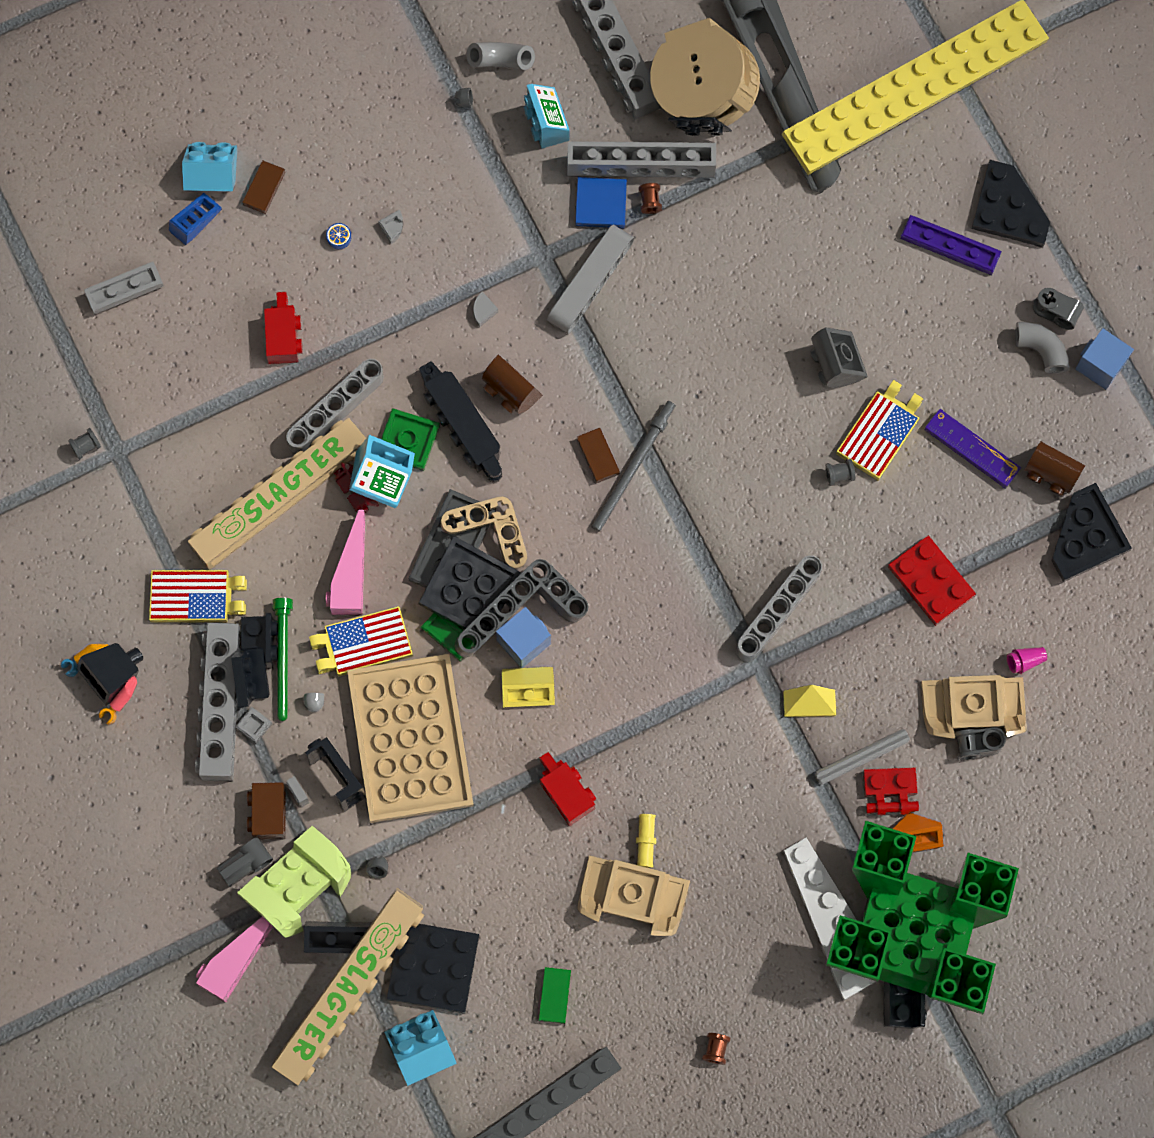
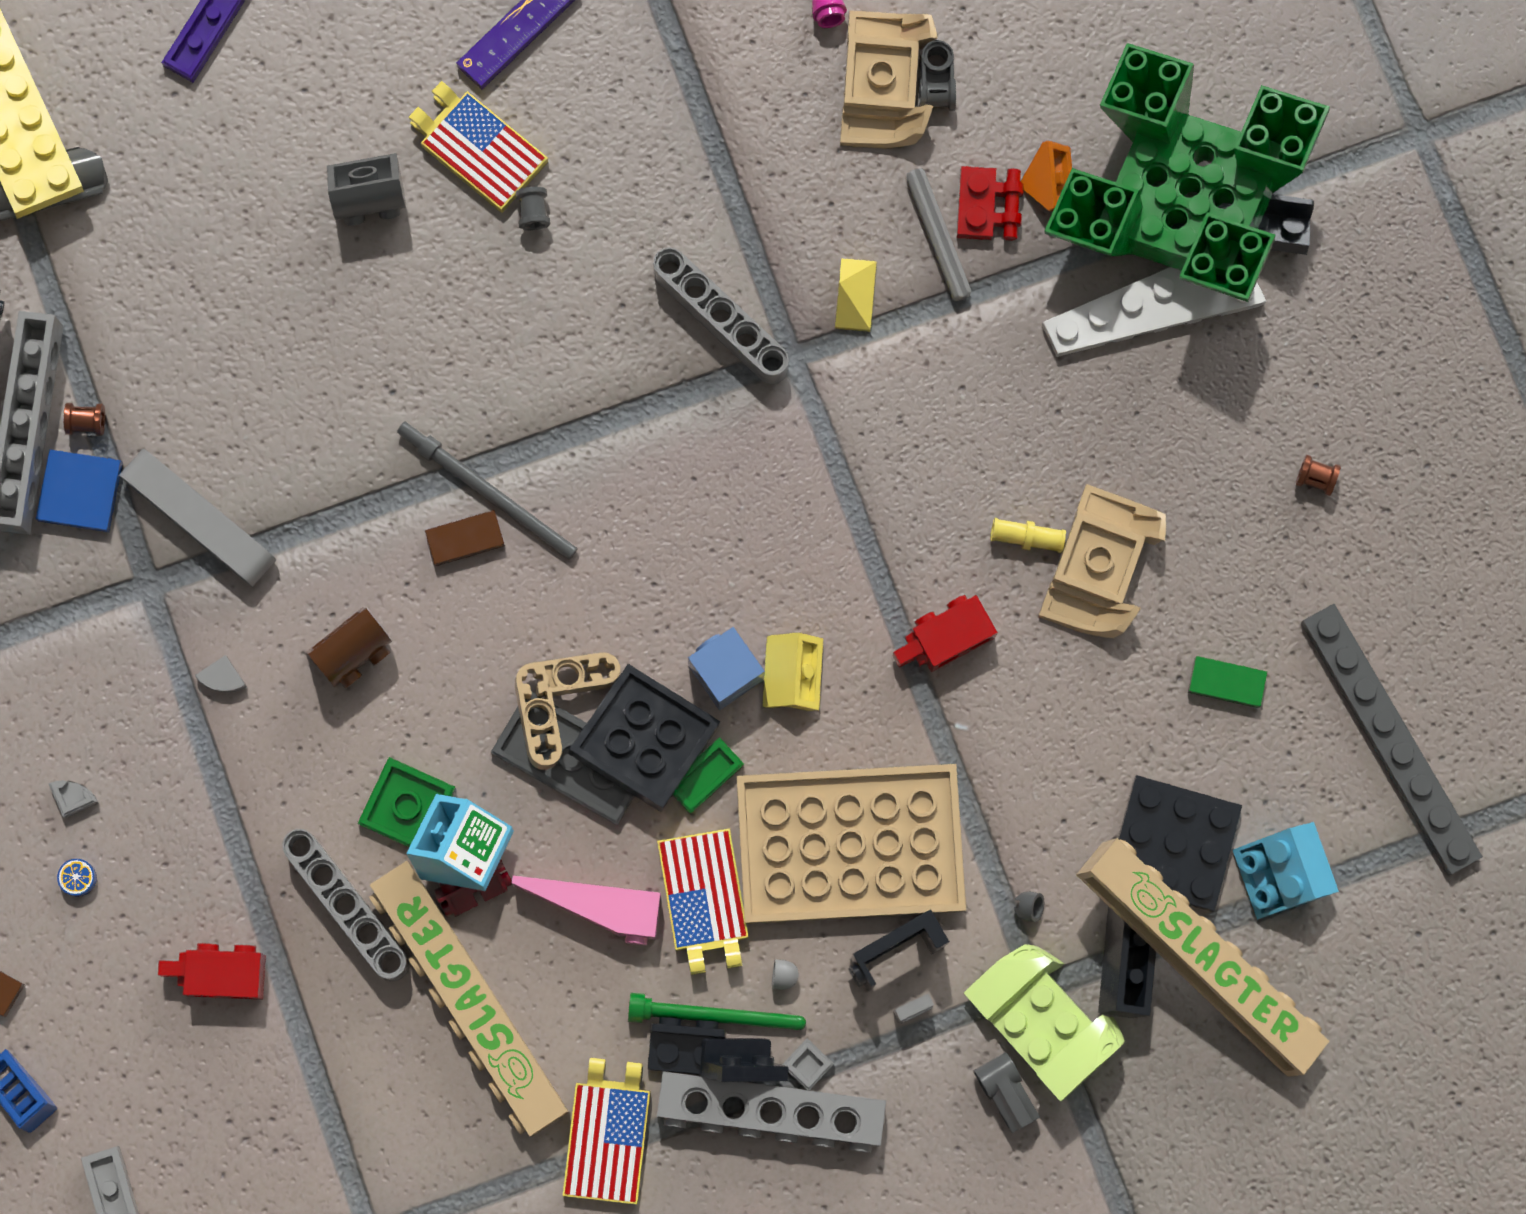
camera: 85 degrees left, 5 degrees up
(230, 964) = (1152, 1126): bright pink slope -> none
(268, 810) = (937, 1053): reddish brown brick -> none
(463, 420) = (390, 722): black hinge -> none
(515, 601) = (678, 672): dark grey beam -> none
(931, 580) = (700, 109): red plate -> none

